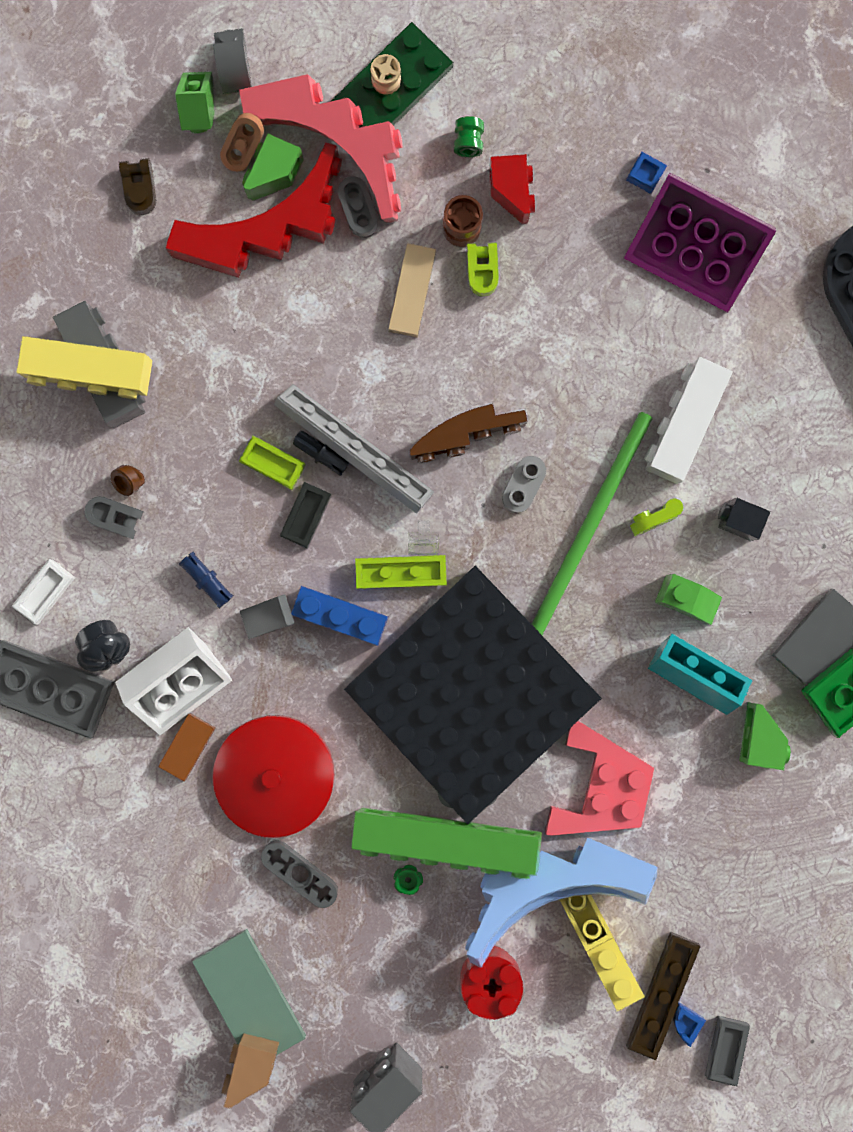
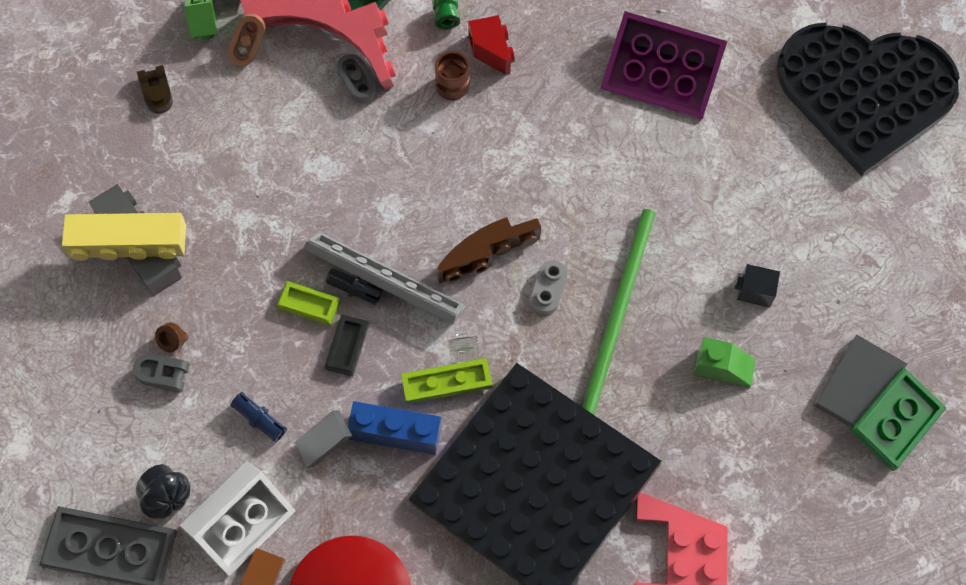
camera: 10 degrees left, 20 degrees down
(43, 592) = (97, 454): white tile -> none
(274, 168) = (277, 57): bright green slope -> none
(301, 213) = (244, 124): red arch -> none
(412, 290) = (416, 139): tan tile -> none
(482, 277) = (479, 119): lime plate -> none
(646, 172) = (606, 19): blue tile -> none
(646, 521) = (672, 300): lime plate -> none
(688, 420) = (687, 210): white brick -> none
(700, 674) = (750, 427): teal brick -> none
(763, 740) = (826, 482): bright green slope -> none

